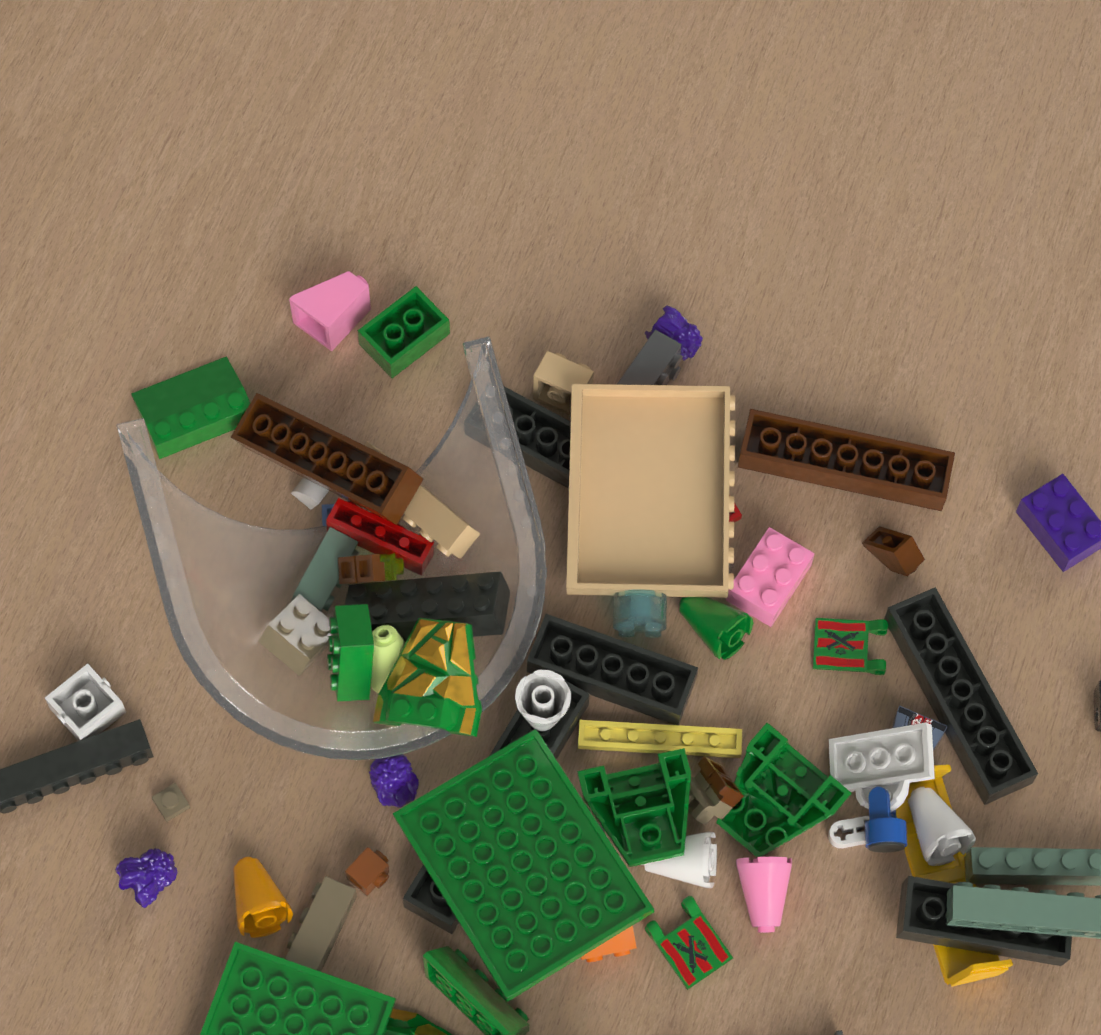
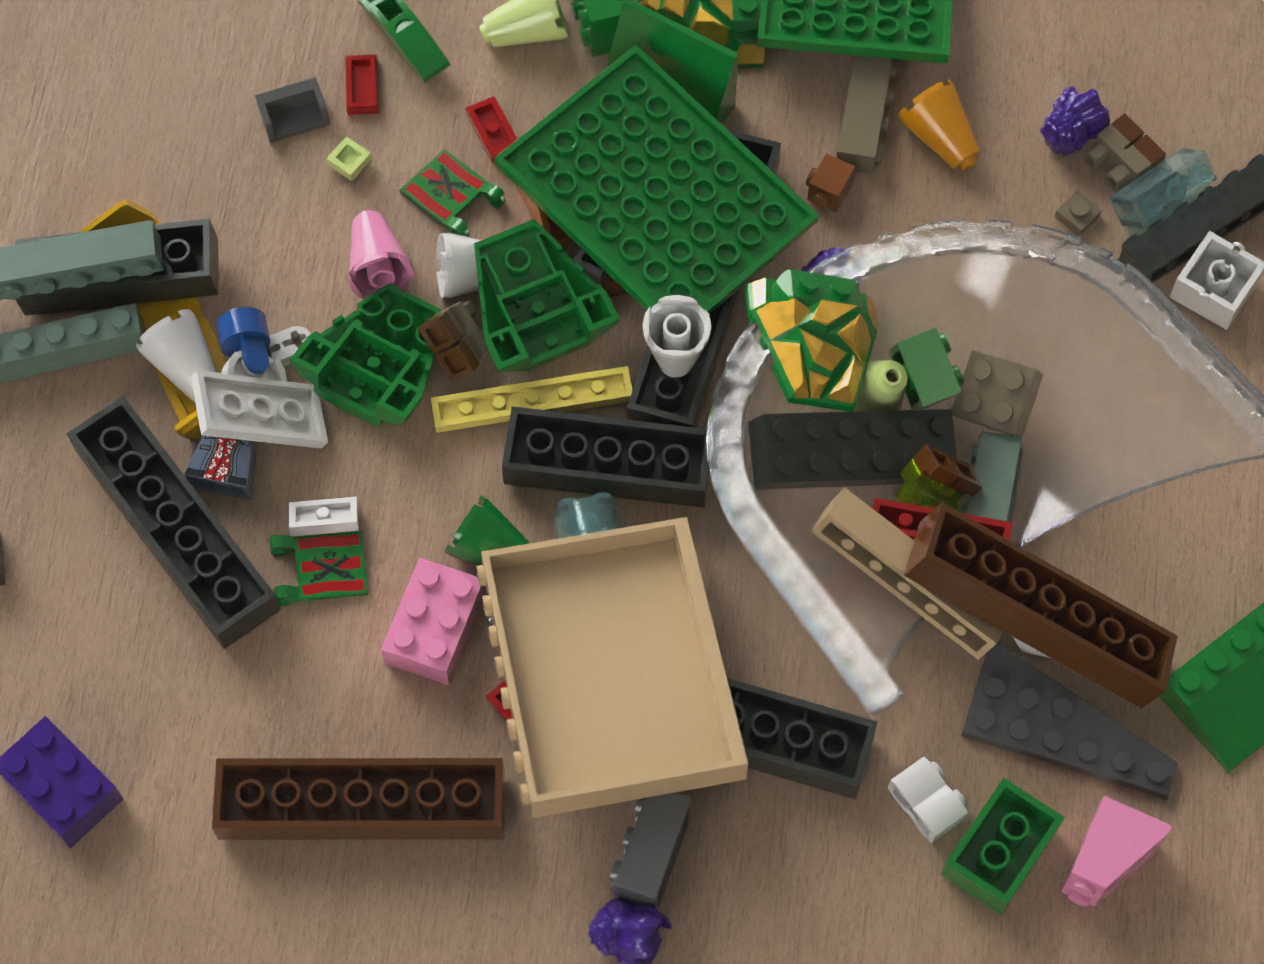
camera: 170 degrees right, 0 degrees up
(95, 795) = (1163, 188): none -> clear light blue brick
(109, 839) = (1124, 152): none -> dark tan hips
(331, 402) = (1040, 718): none -> dark grey wing
(444, 378) = (928, 799): none -> white brick
(555, 378) = (763, 815): tan brick -> none
(642, 993) = (491, 126): none -> red plate
(772, 993) = (349, 158): none -> yellowish green plate
(841, 678) = (323, 516): none -> white plate
(894, 550) = (280, 695): reddish brown slope -> none

